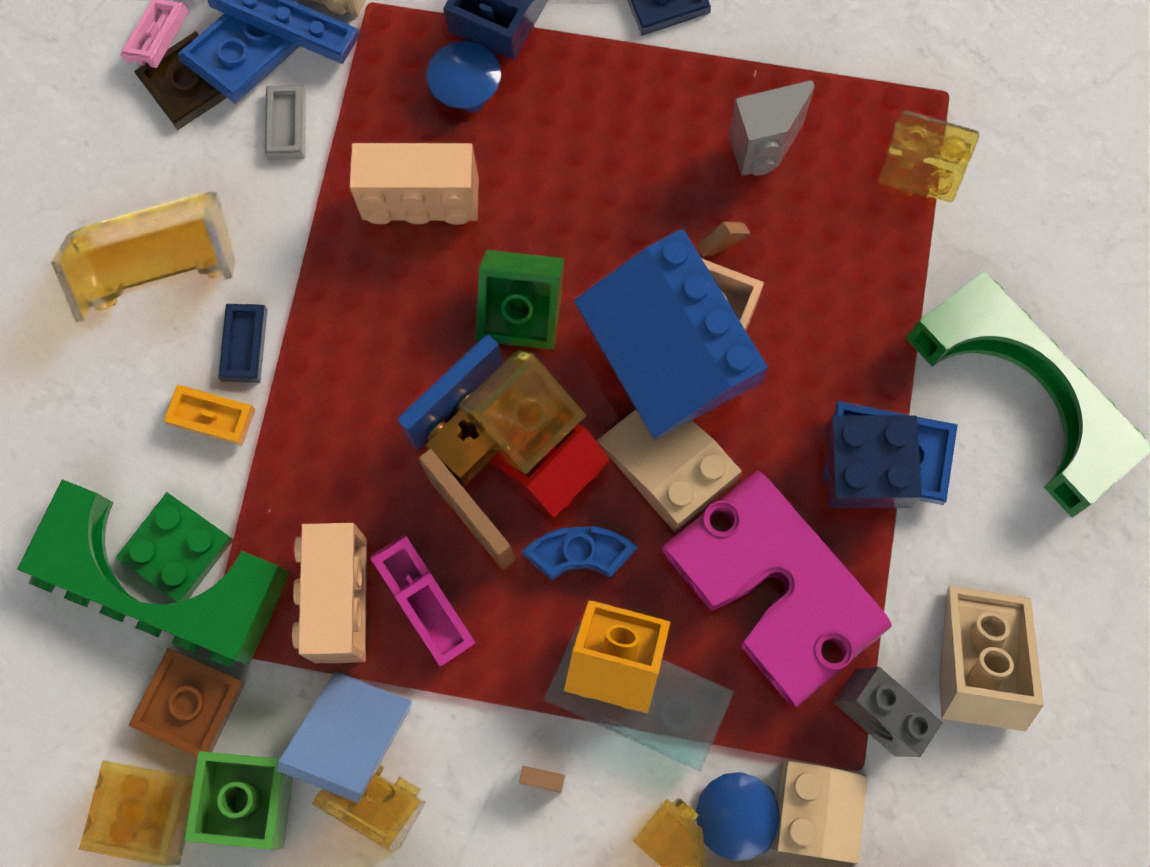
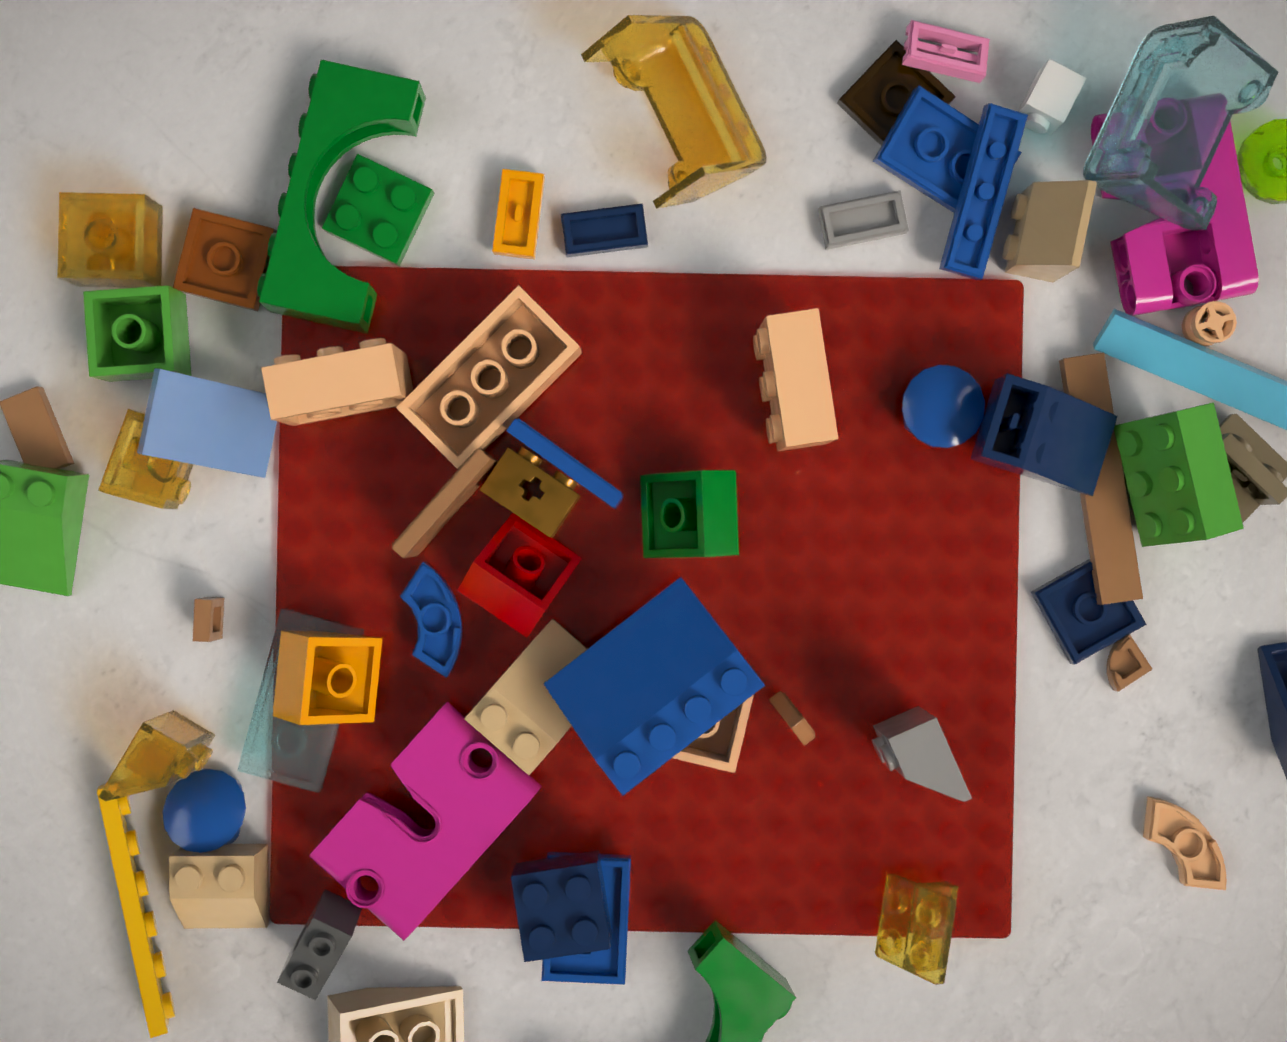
camera: 80 degrees right, 15 degrees up
(358, 453) = (490, 378): none -> light nougat brick
(422, 600) = (359, 470): dark pink slope -> none
(522, 410) = (546, 544): clear yellow brick -> none

